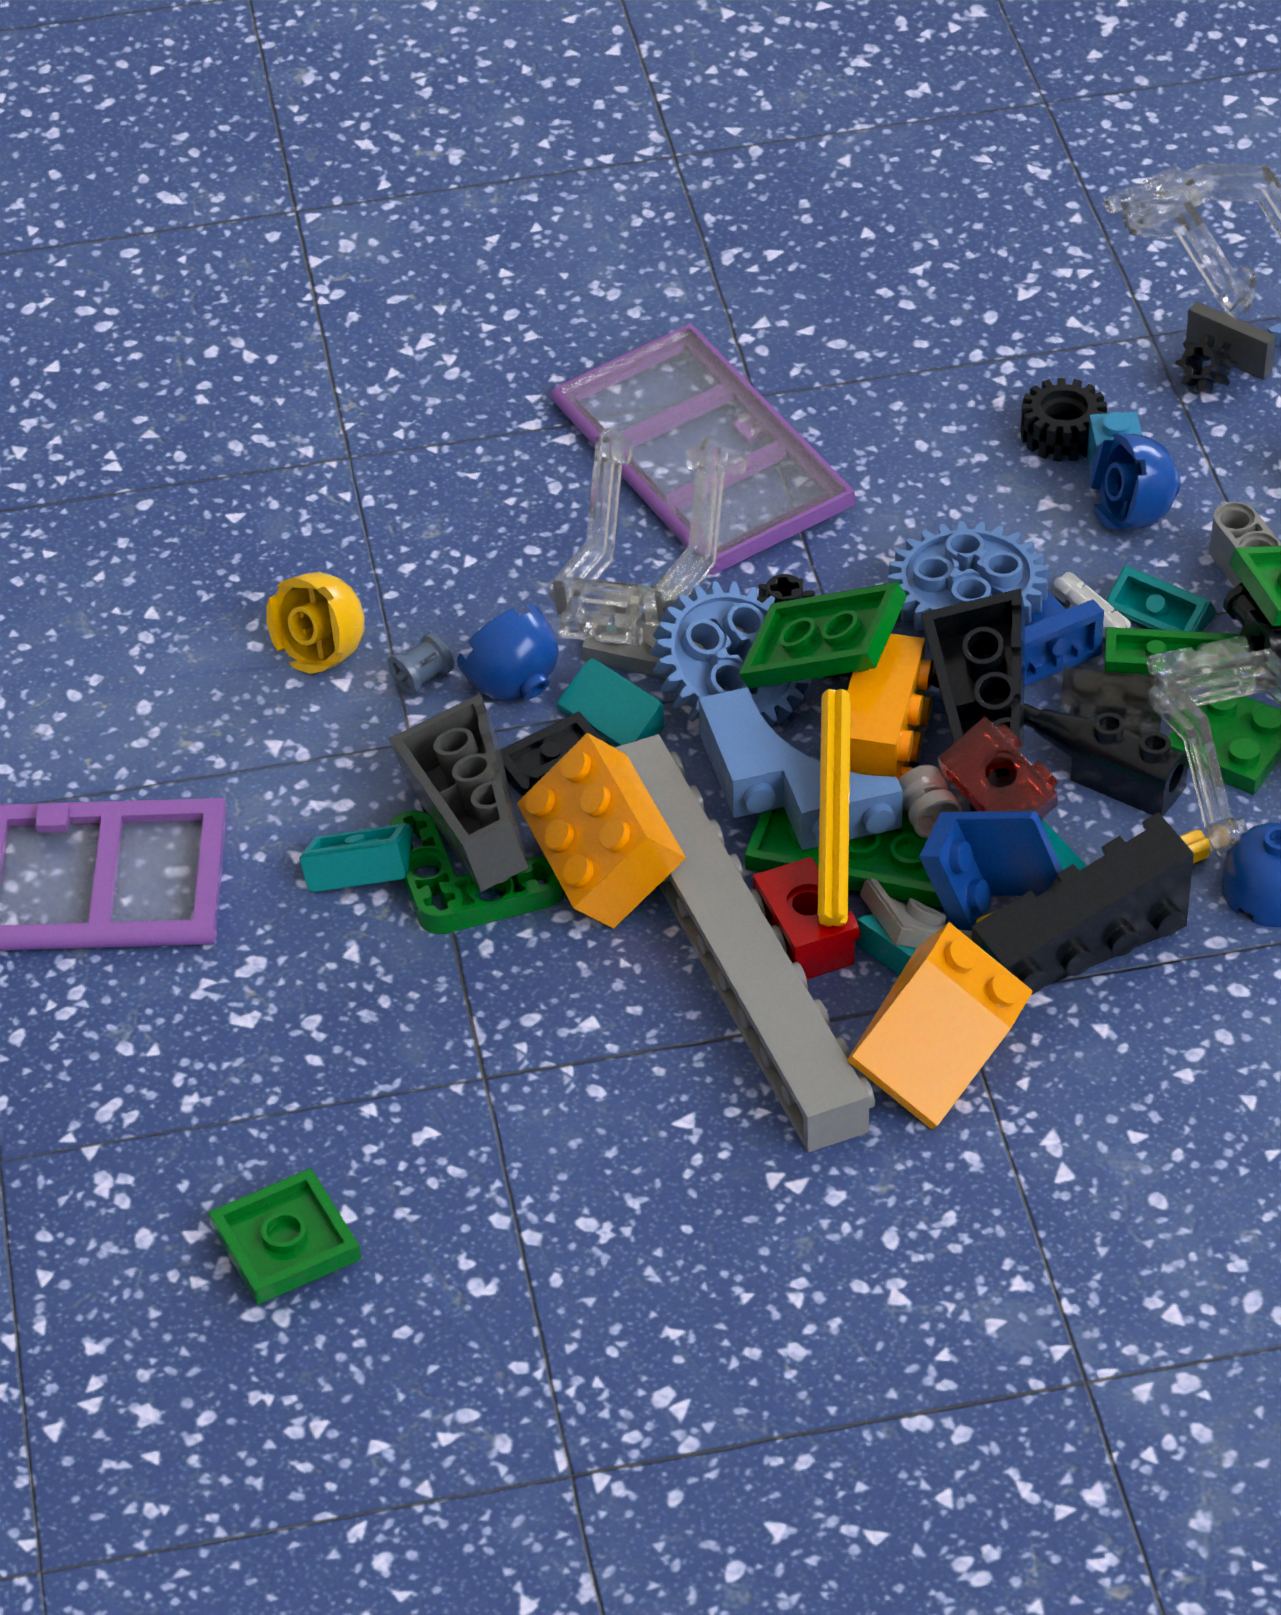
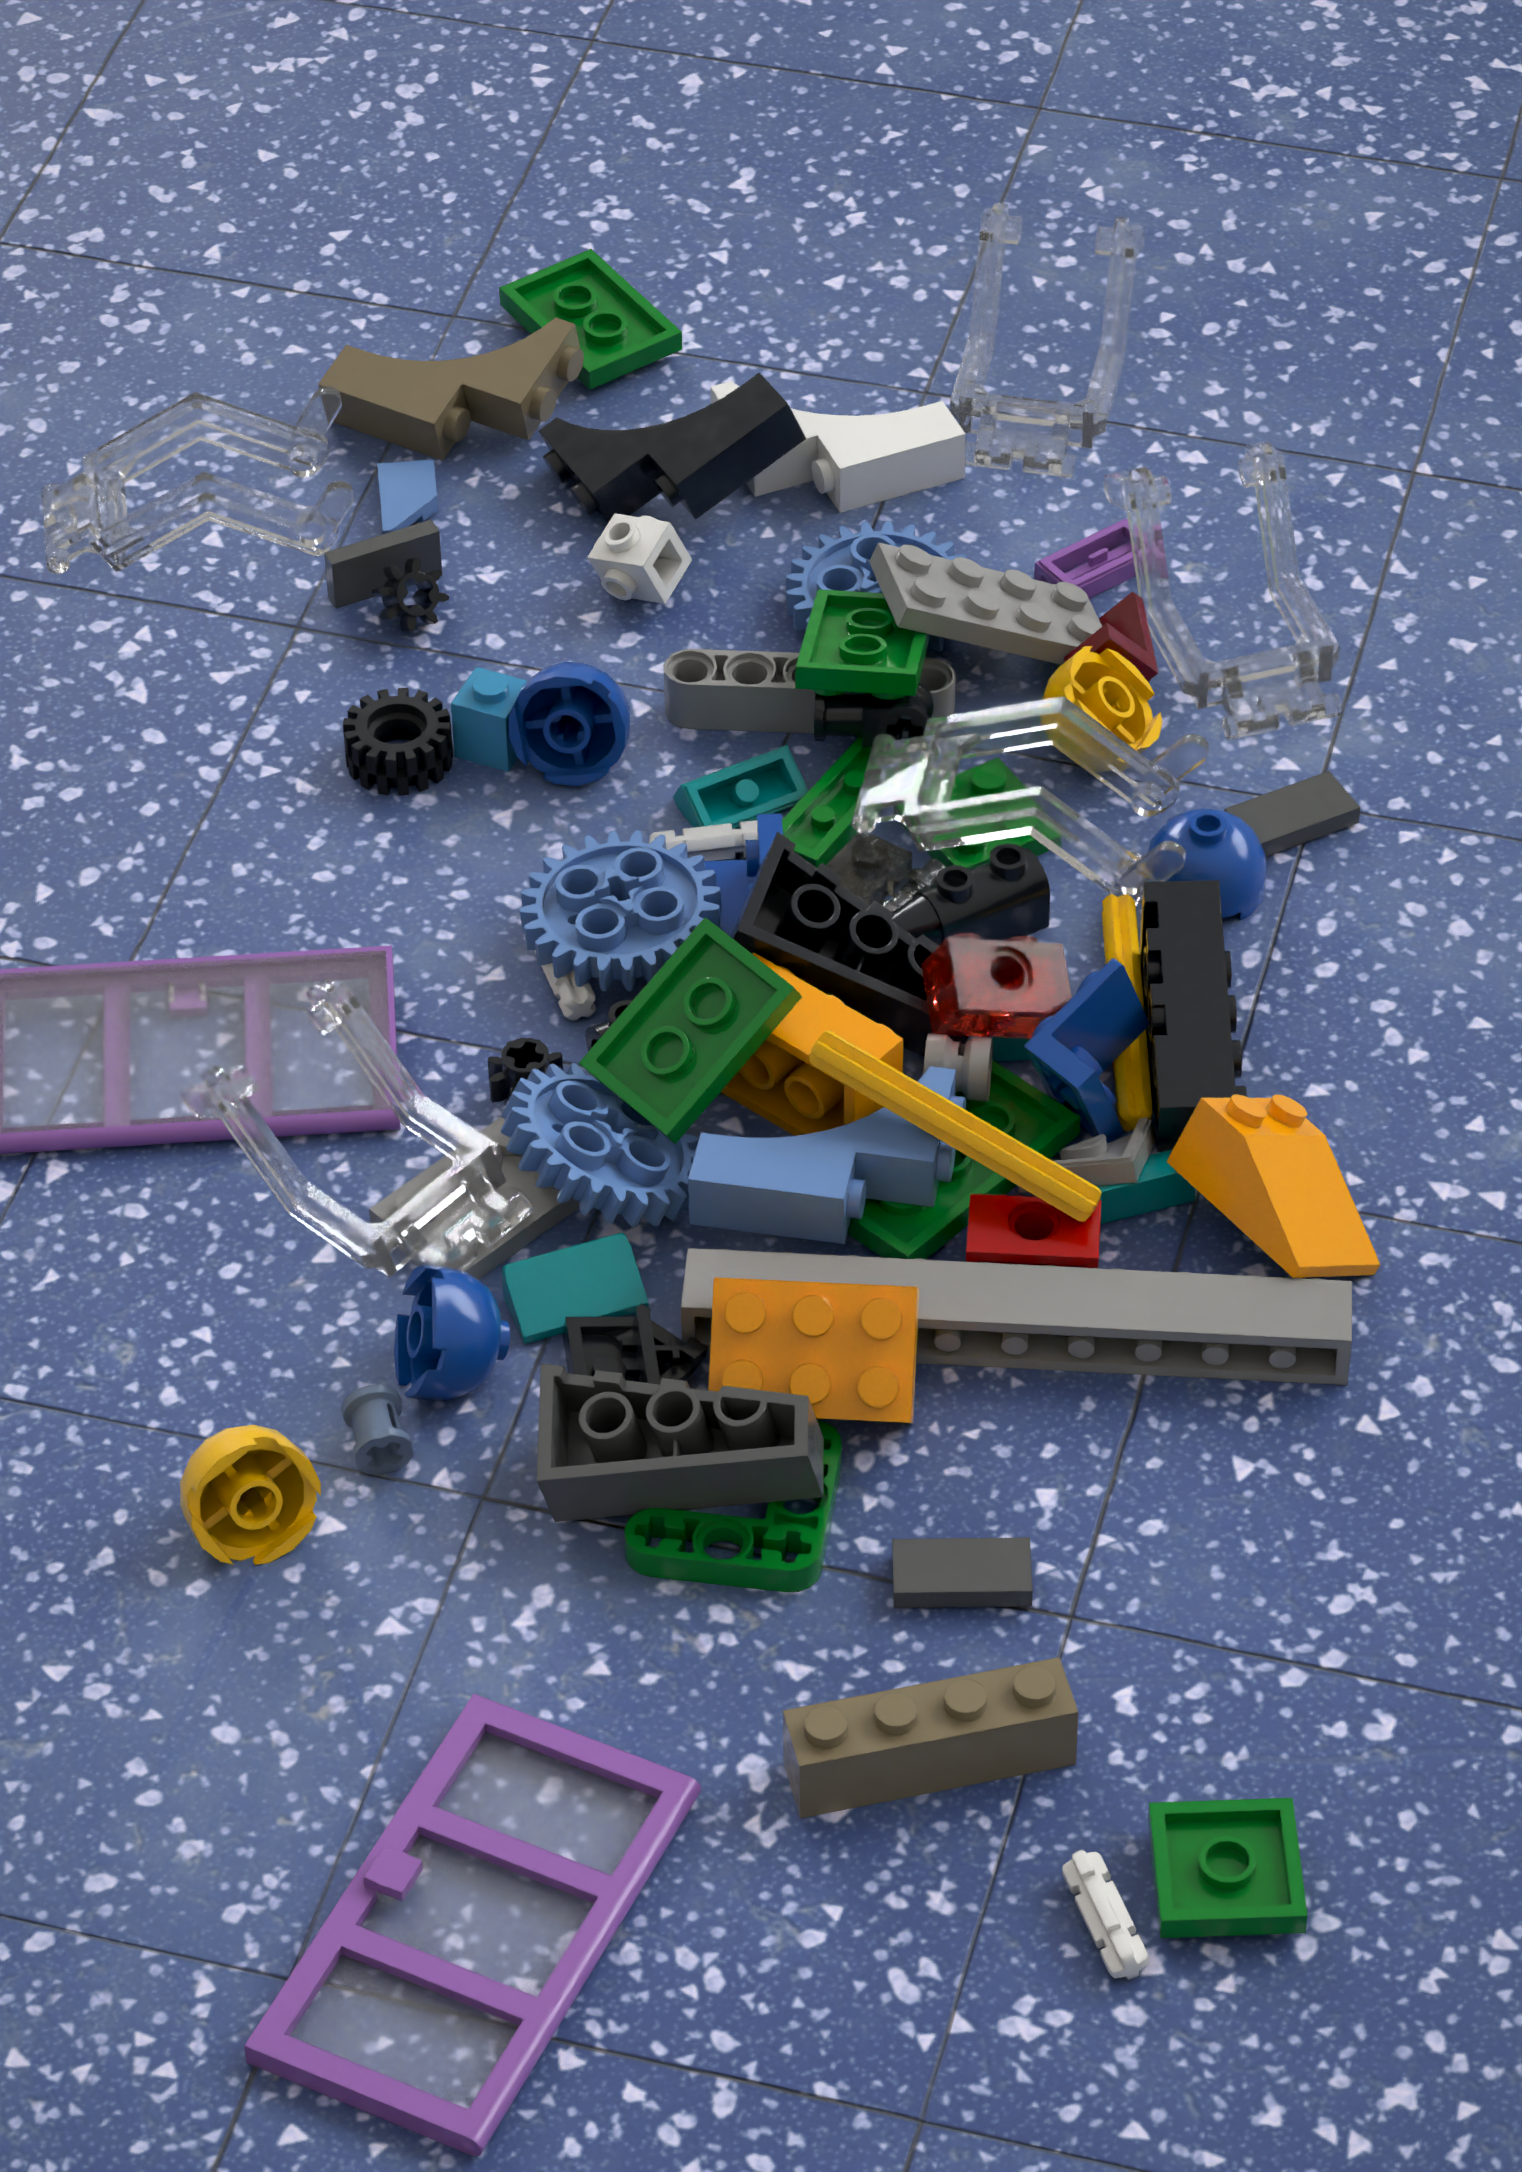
camera: 65 degrees left, 0 degrees up
(212, 1187) = (1105, 1915): none -> white axle
(306, 1031) = (930, 1737): none -> dark tan brick
(357, 857) = (667, 1598): teal slope -> none
(481, 1001) = (962, 1572): none -> dark grey tile

